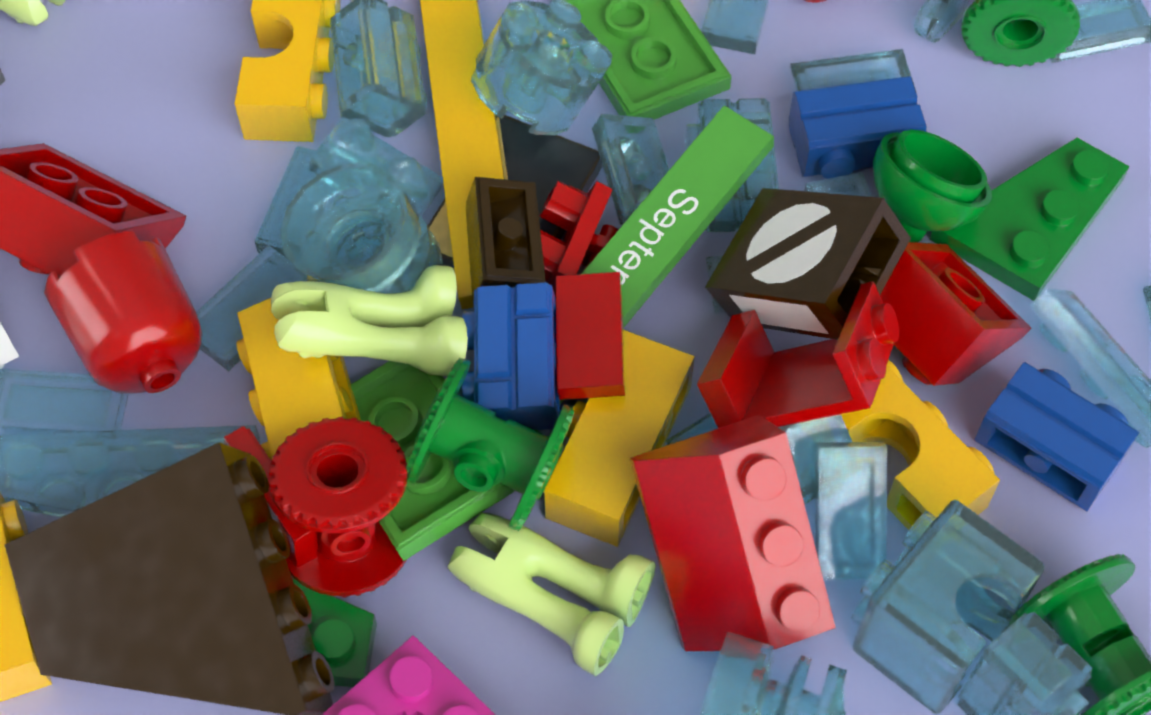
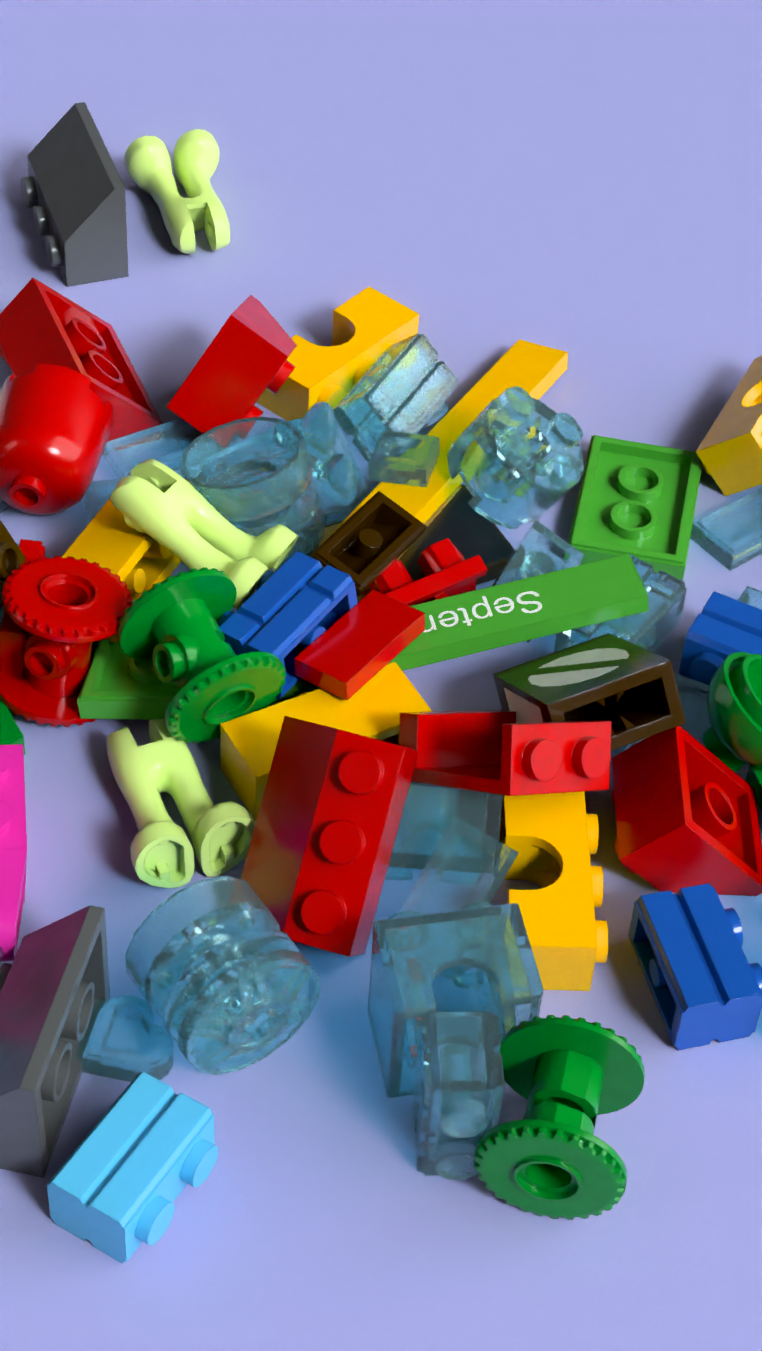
camera: 35 degrees right, 15 degrees down
(216, 240) = (160, 443): none -> clear light blue tile
(230, 131) = (236, 369): none -> red slope
(443, 123) = (404, 458): none -> clear light blue tile

